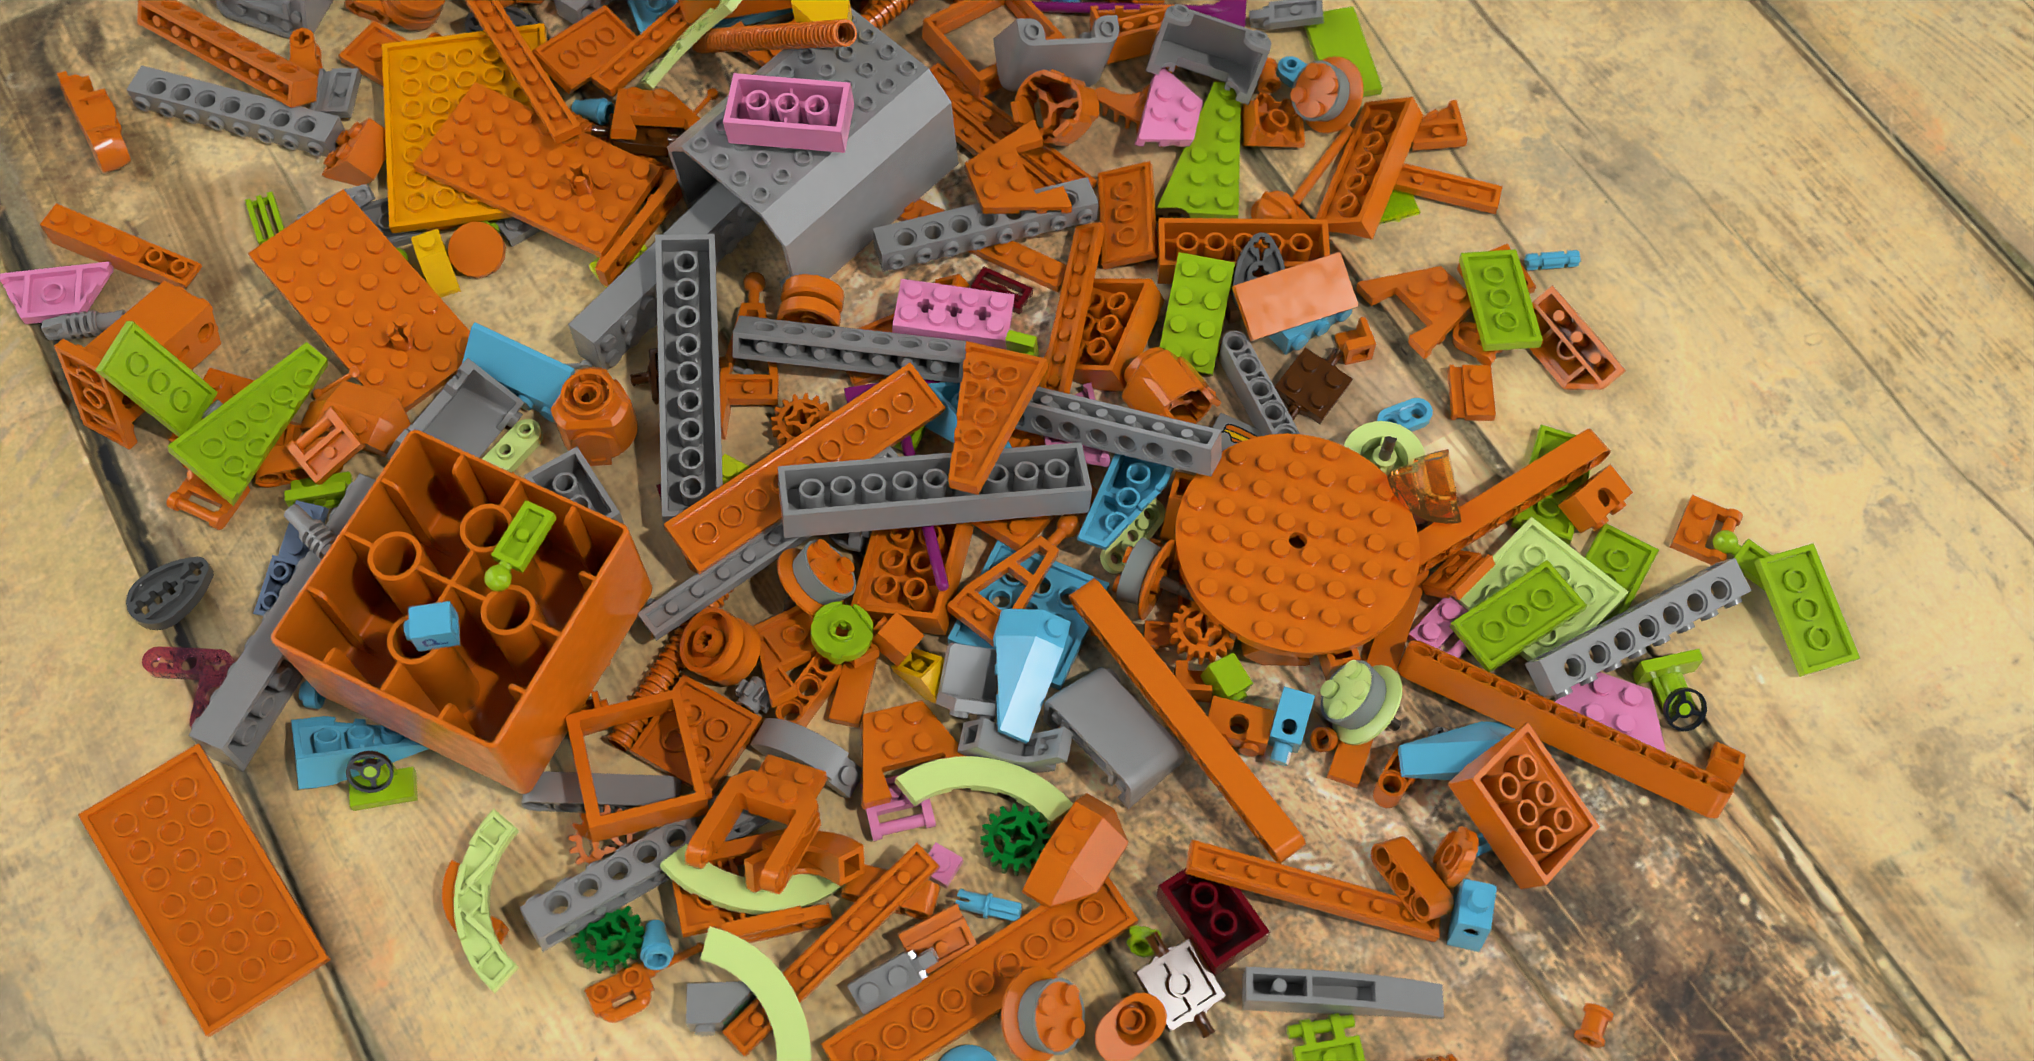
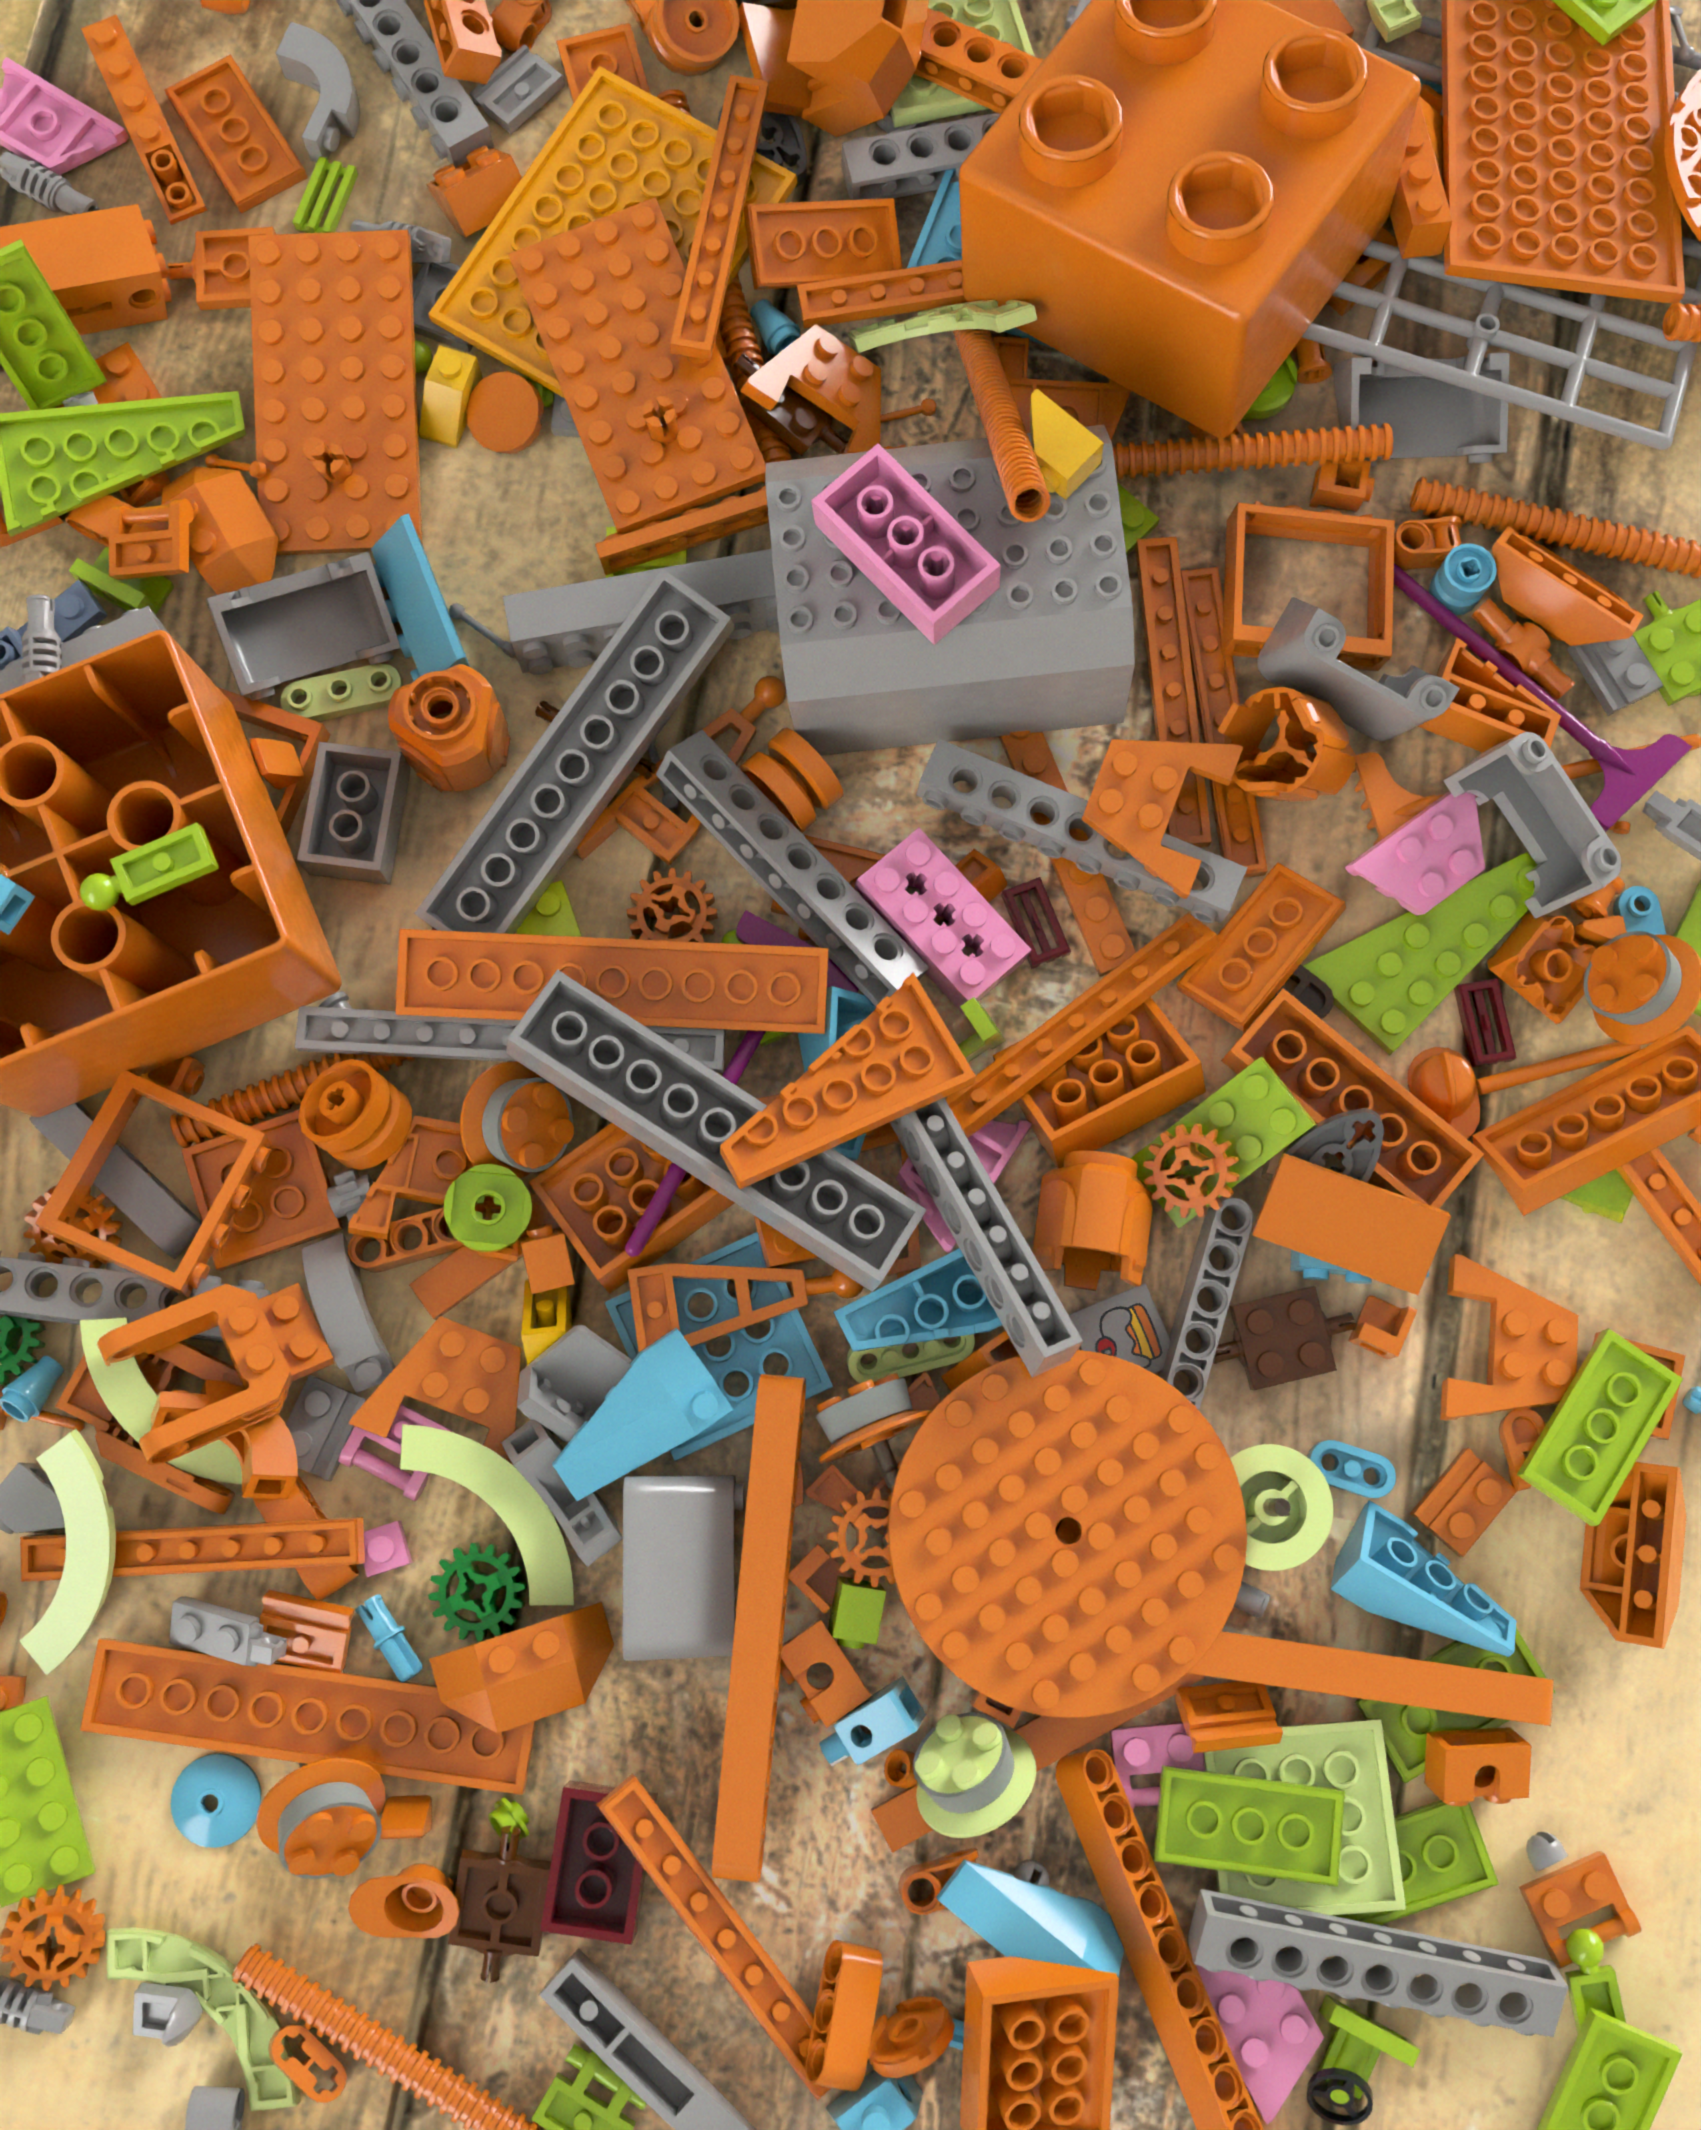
camera: 40 degrees right, 15 degrees up
(181, 223) = (236, 133): none -> orange tile
(213, 155) = (318, 63): none -> light grey arch
(241, 289) = (220, 267): none -> orange plate
(848, 820) = (322, 1425): none -> light grey plate
(1090, 987) = (406, 1817): none -> orange slope
(1205, 340) = (1195, 1190): none -> orange gear
(1265, 174) = (1469, 1026): none -> dark red tile
(1283, 87) = (1600, 930): none -> orange slope
(1428, 488) = (1281, 1594): clear orange brick -> none
(1482, 448) = (1400, 1580): none -> medium azure wedge
(1664, 516) = (1544, 1850): none -> light grey hinge

